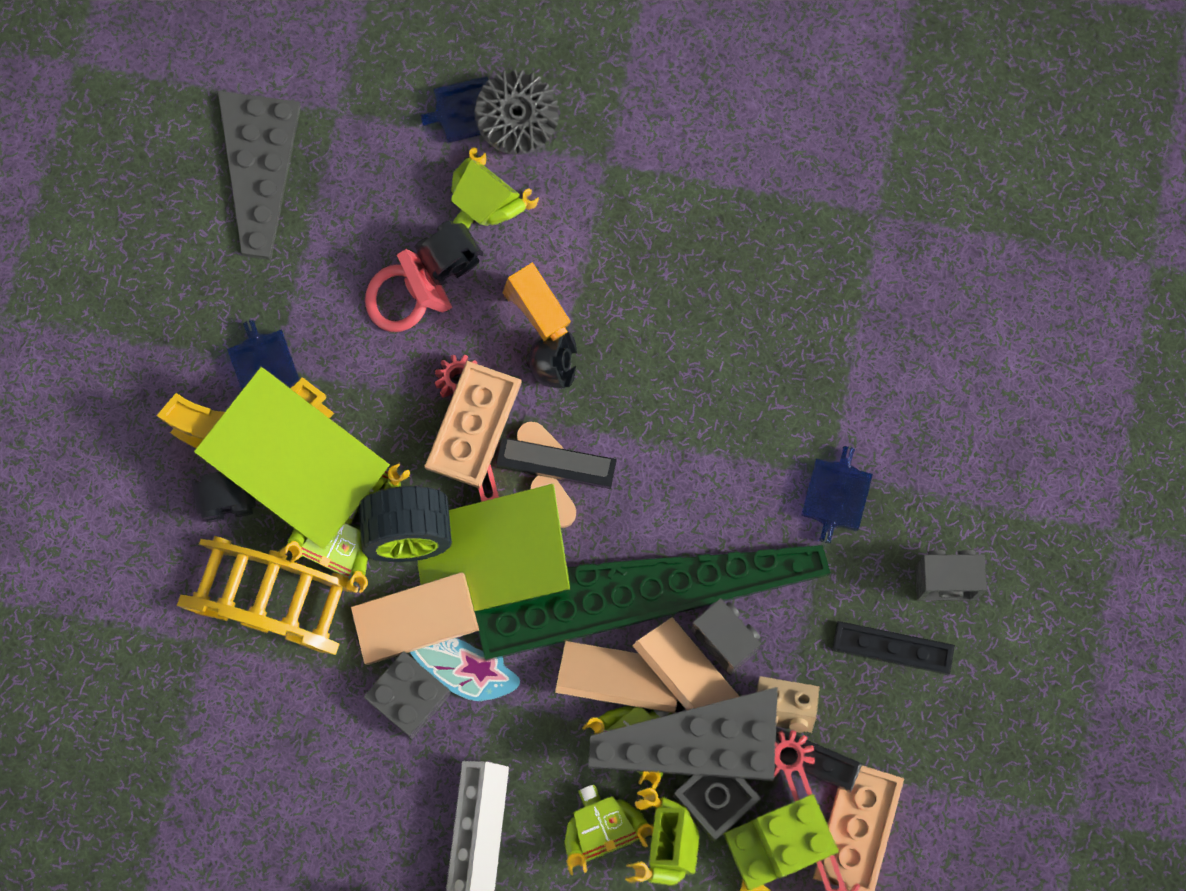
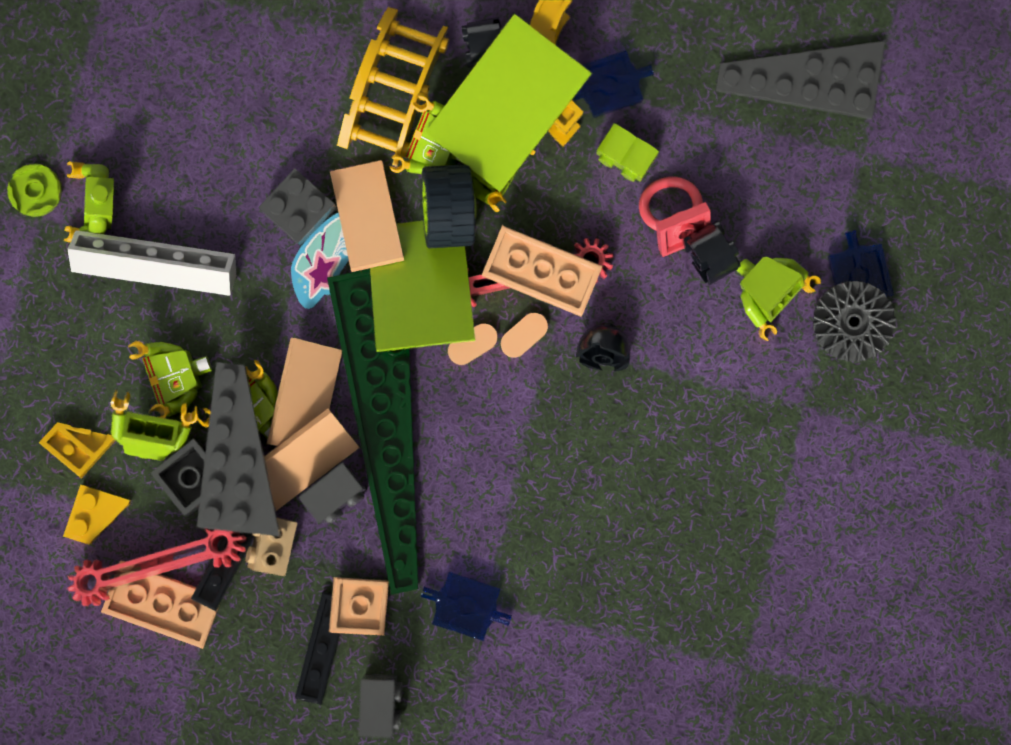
camera: 90 degrees right, 10 degrees up
(340, 345) = (626, 153): none -> lime brick
(537, 302) = (651, 332): light orange arch -> none
(556, 463) = (505, 347): tile -> none
(781, 842) = (145, 532): lime bracket -> none
(845, 608) = (358, 606): none -> light nougat tile

